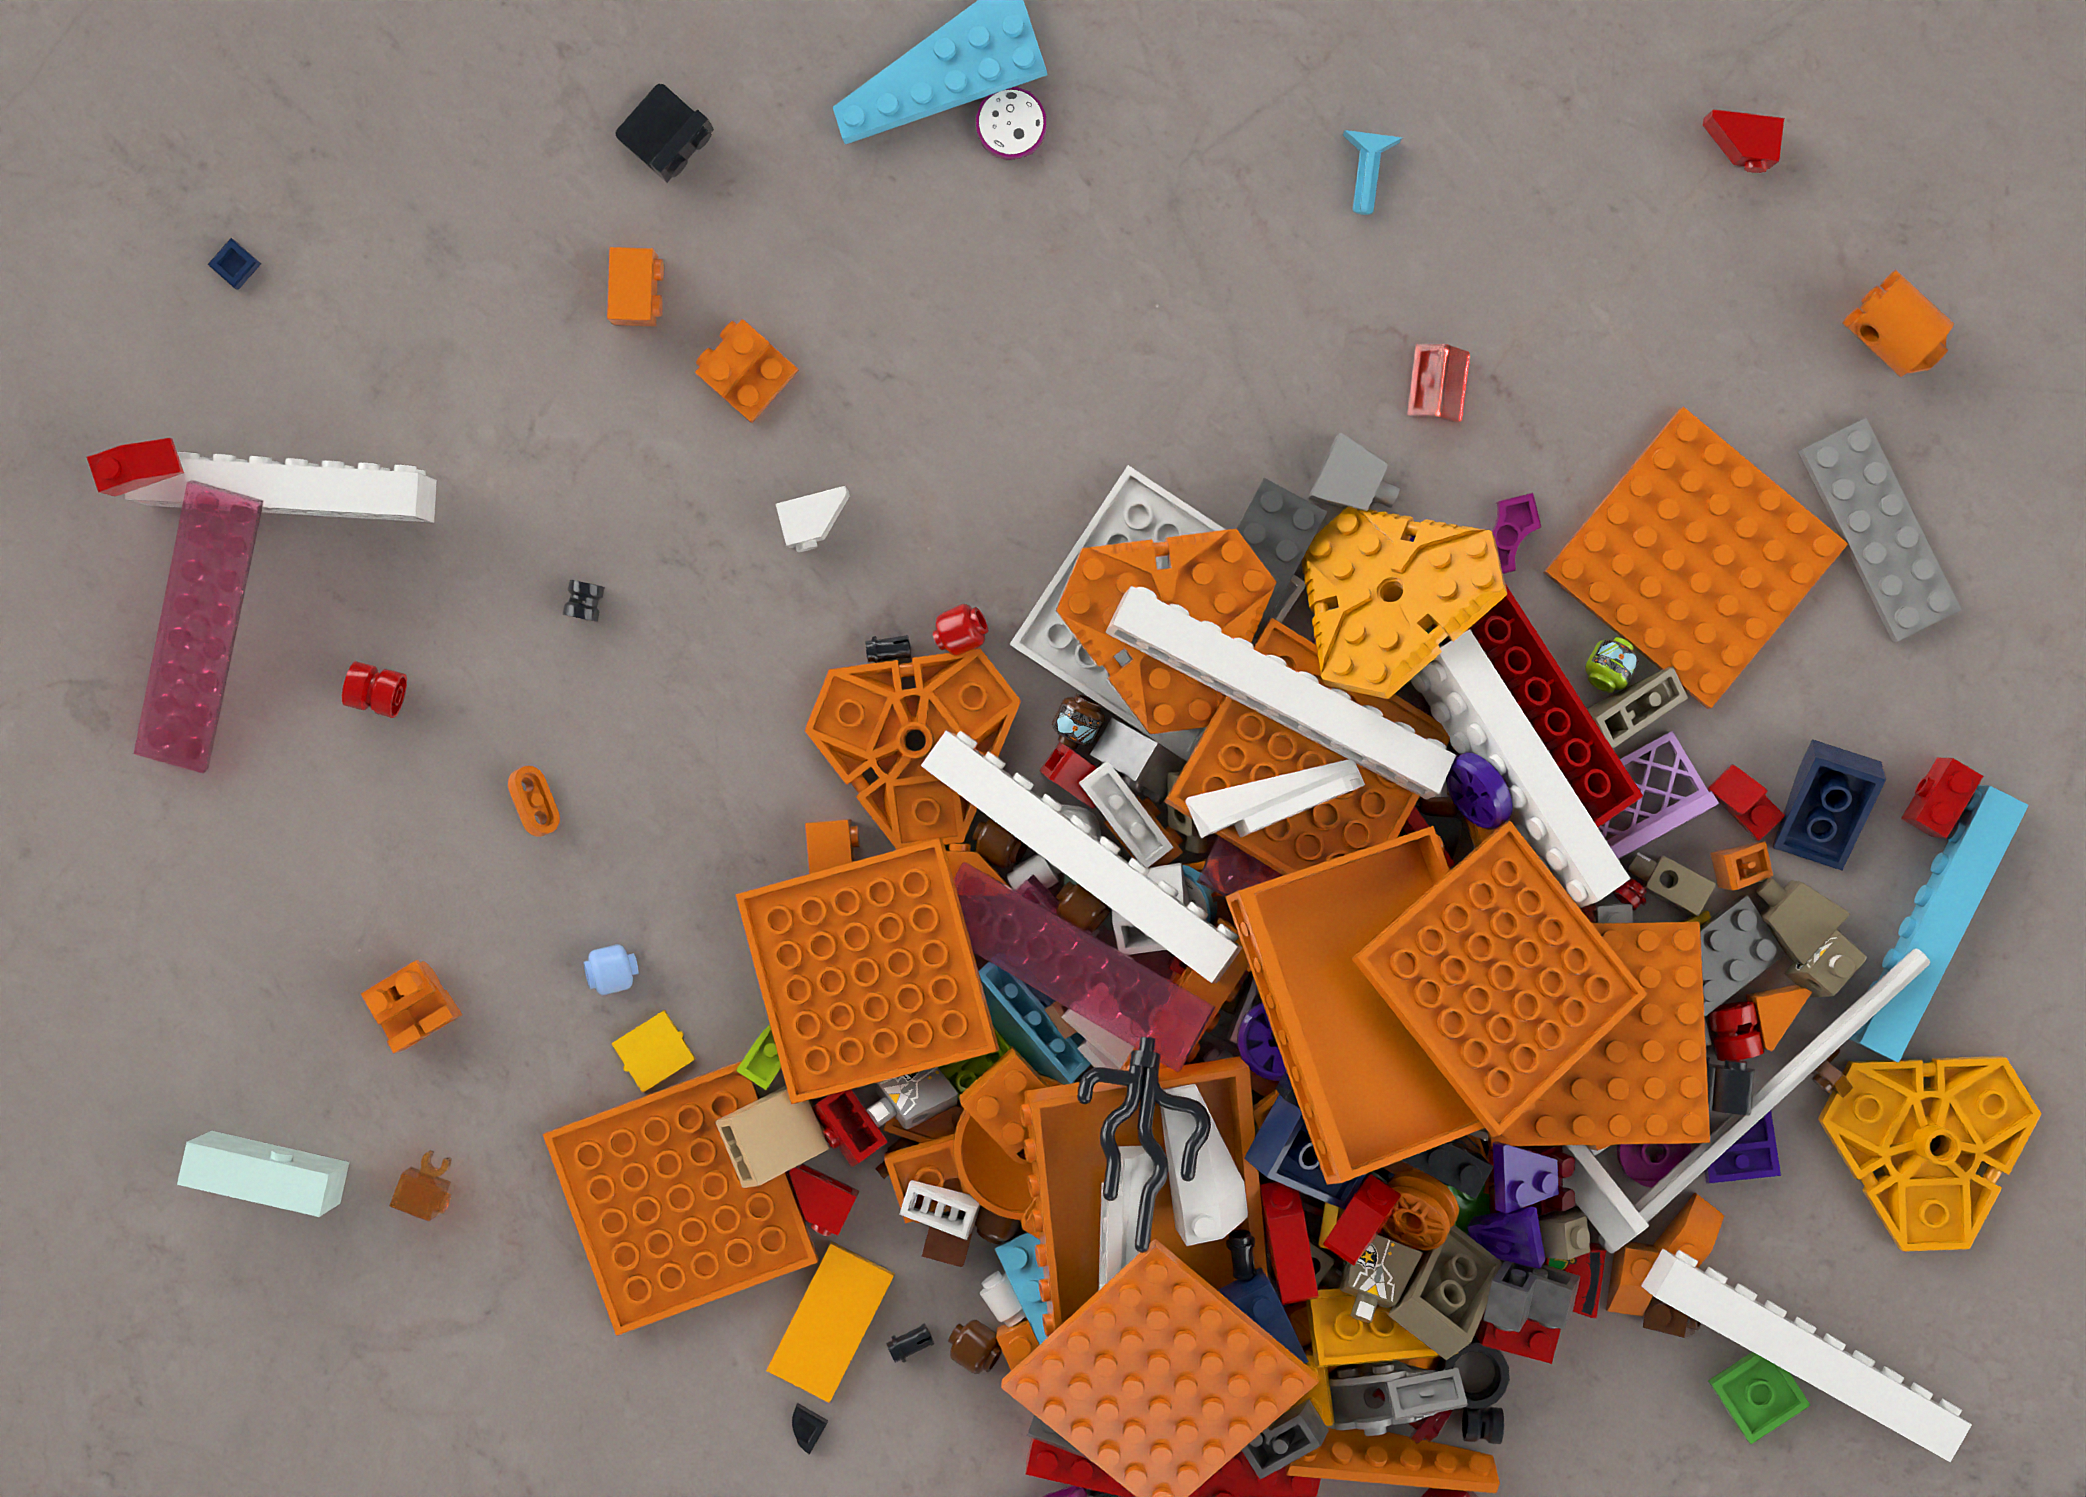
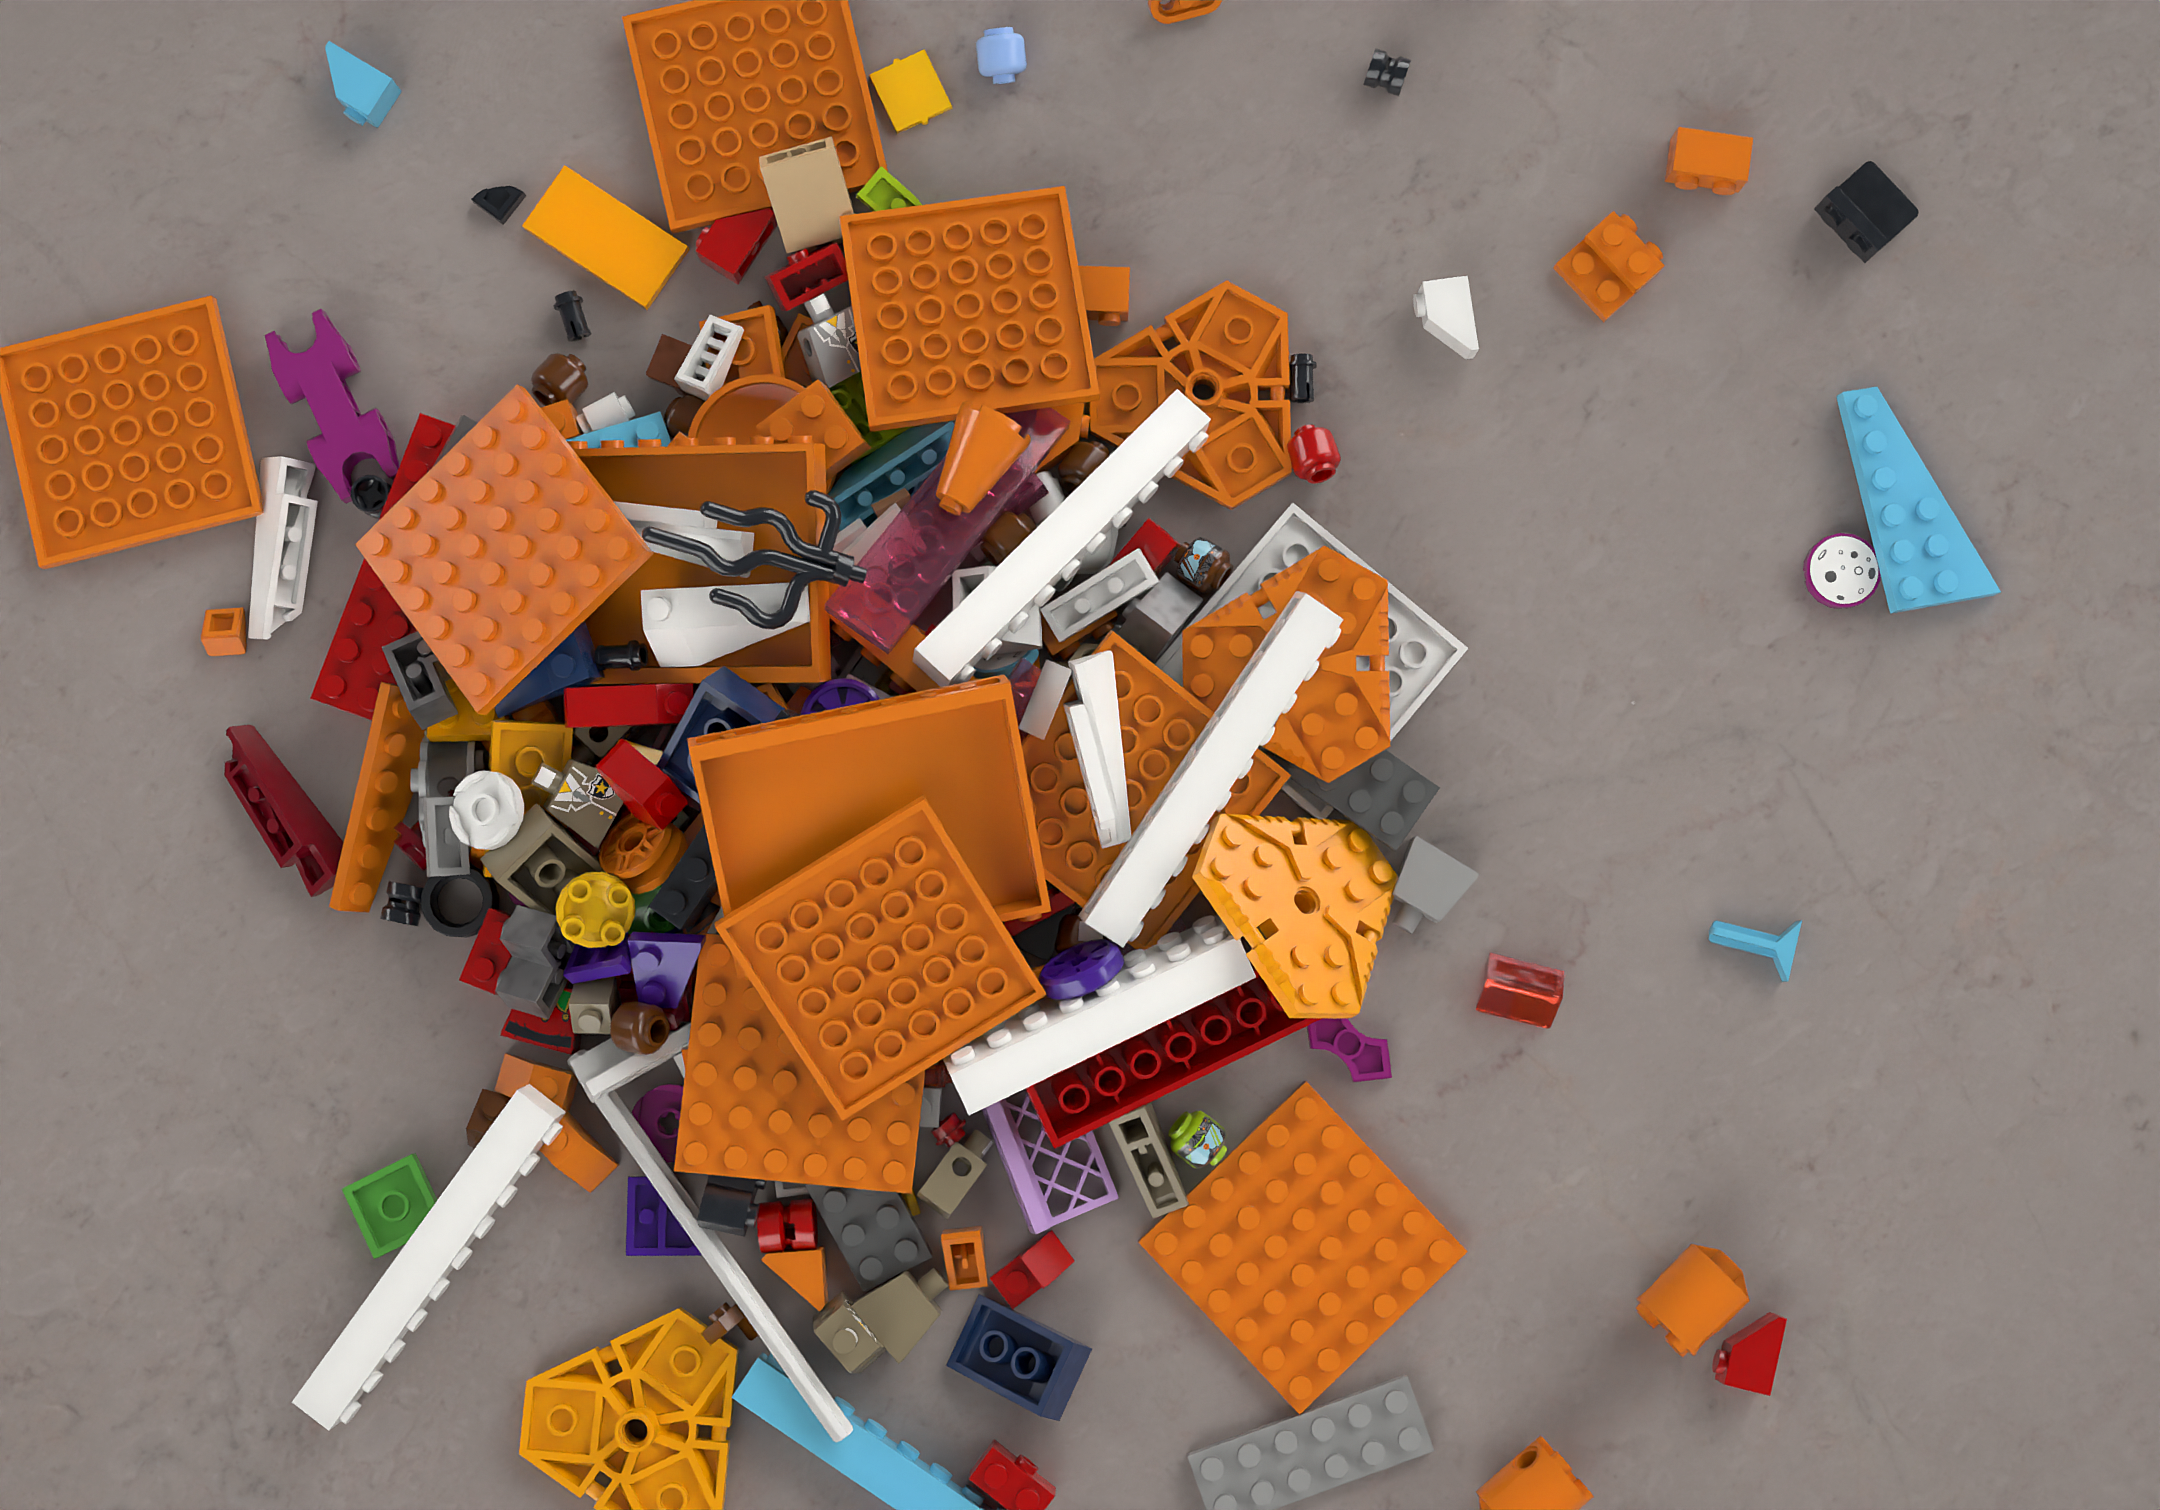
camera: 100 degrees right, 5 degrees down
(1018, 946) = (978, 455): none -> orange cone
(1238, 855) = (1045, 699): none -> white sticker
(1401, 1360) = (486, 810): none -> white tile
(1481, 1247) = (595, 910): none -> yellow dish
(1580, 1191) = (639, 1027): none -> reddish brown head
(1704, 195) = (1694, 1297): none -> orange cylinder

